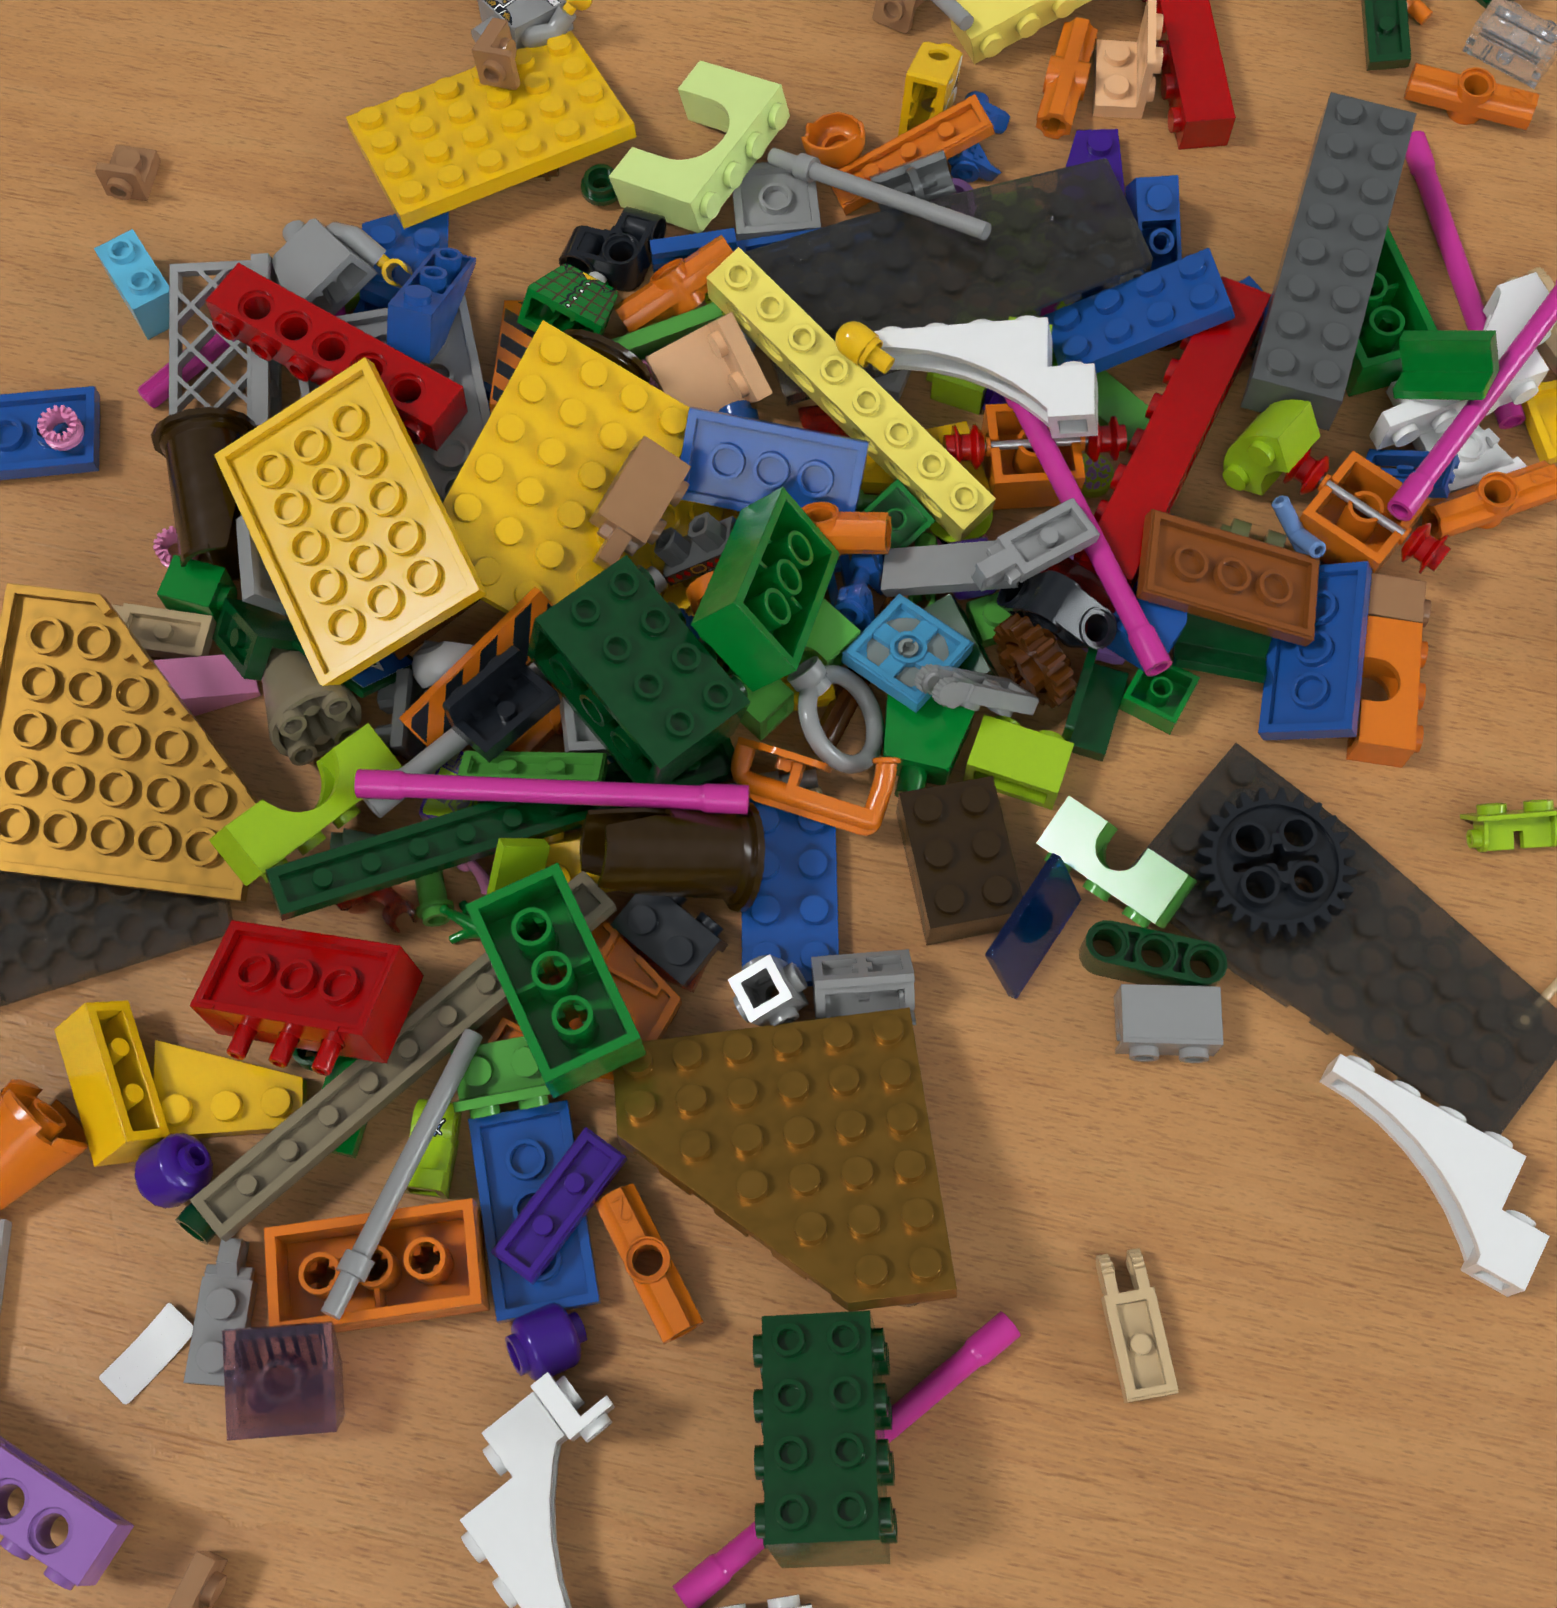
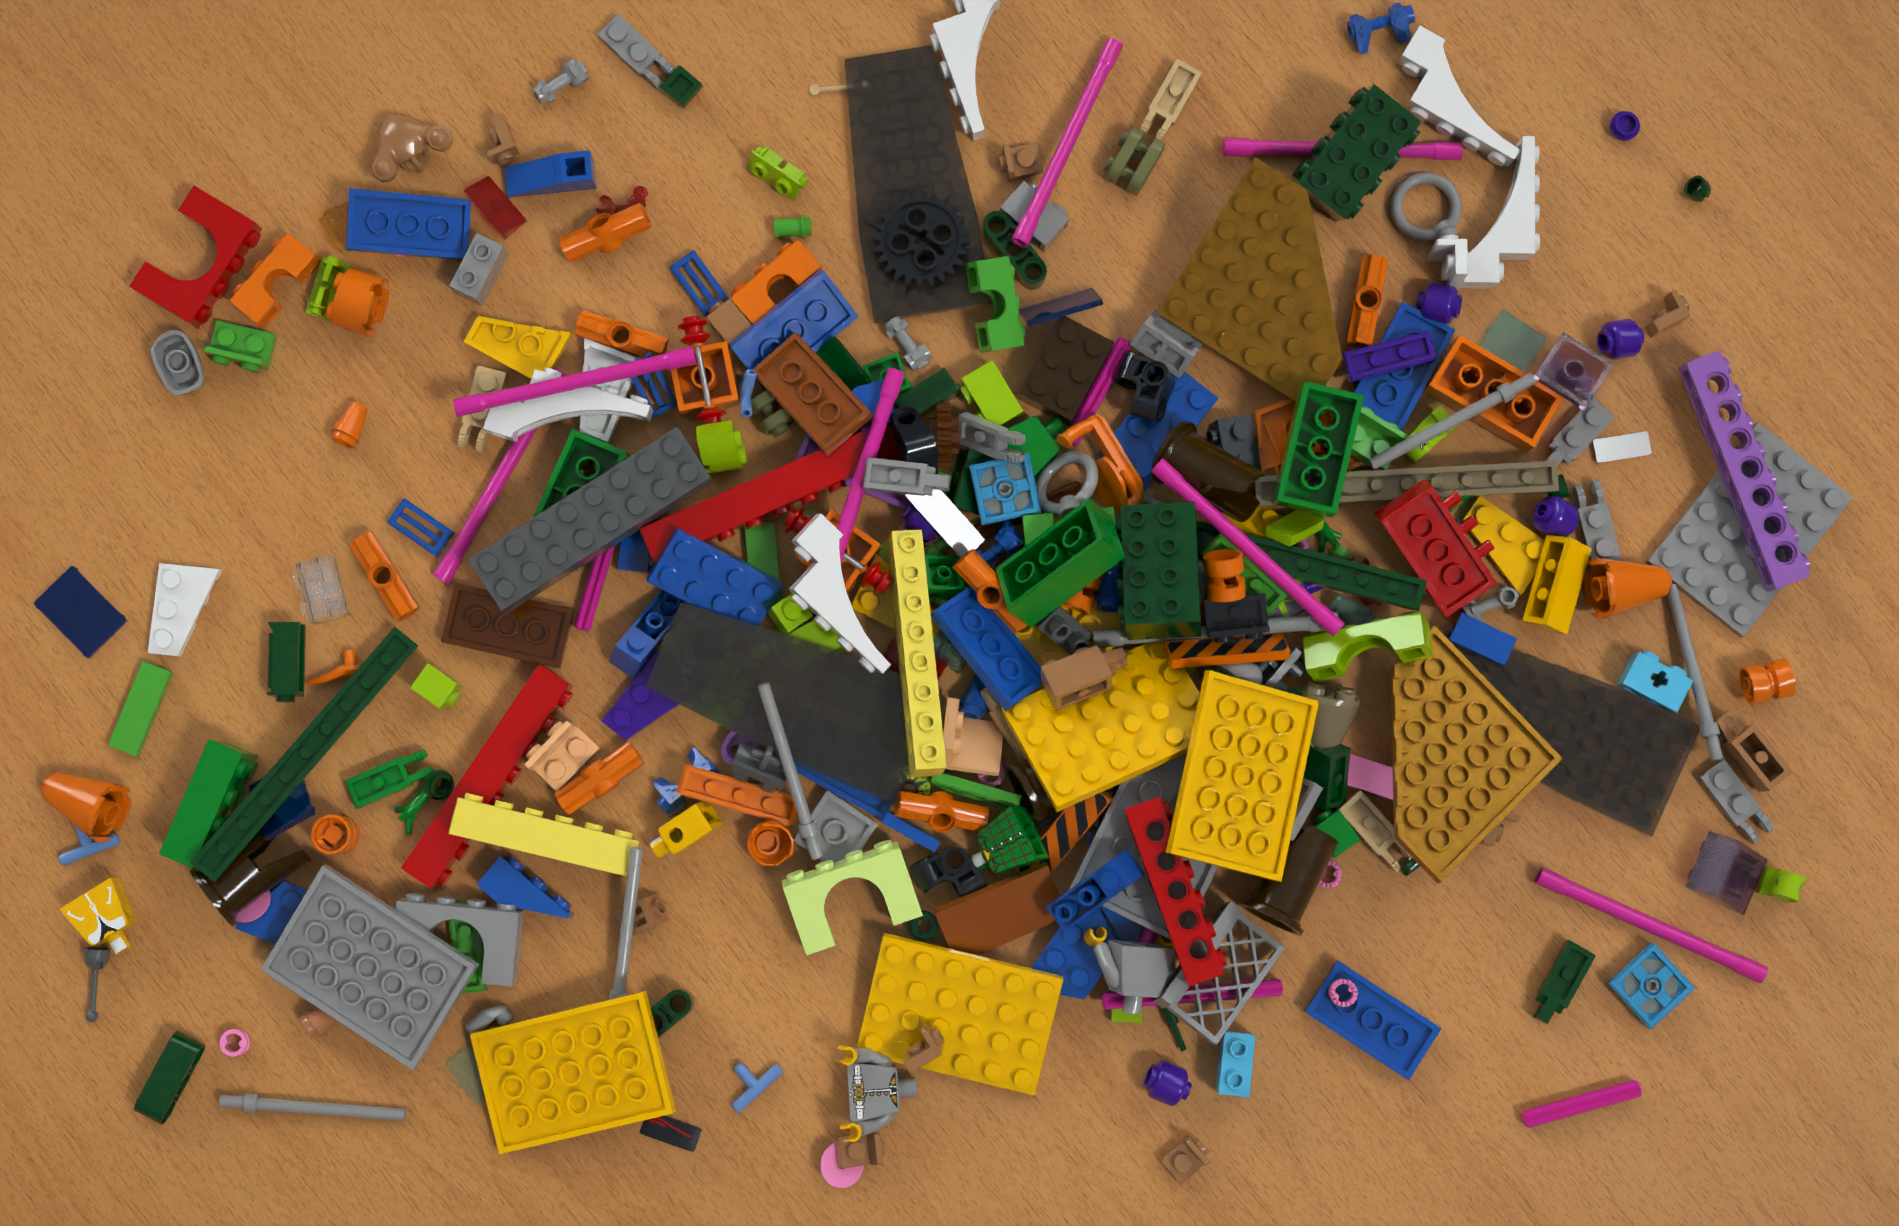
camera: 145 degrees left, 15 degrees up
(110, 1211) = (1596, 523): none -> light grey hinge
(165, 936) = (1482, 639): none -> blue tile
(173, 1019) = (1504, 598): none -> light grey bar
(203, 216) = (1167, 1083): none -> dark purple head
(249, 1501) = (1620, 339): none -> dark purple head
(405, 1374) = (1513, 341): none -> clear light blue piece
(529, 242) = (999, 911): none -> dark orange tile
(553, 733) = (1224, 575): none -> orange wheel
(617, 1454) = (1445, 227): none -> light grey piece
(754, 990) = (1214, 375): light grey brick -> none
(827, 898) = (1138, 374): none -> black piece
(862, 346) = (896, 660): yellow cylinder -> none
(902, 886) = (1102, 383): none -> dark pink axle
(1132, 1218) = (1118, 166): none -> olive brick
(1148, 743) = (916, 355): none -> light grey bar
(1248, 1081) = (1020, 161): none -> medium nougat bracket
(1250, 237) = (593, 590): none -> dark pink axle
(1262, 1302) = (1029, 221): none -> dark pink piece
(1273, 152) = (529, 633): none -> reddish brown plate
(1311, 40) = (437, 687): none -> lime brick
(1424, 782) = (793, 227): none -> bright green pin
(1447, 364) = (596, 407): green panel -> none
(1468, 639) = (684, 262): none -> blue tile
(1487, 177) = (441, 542): none -> blue tile

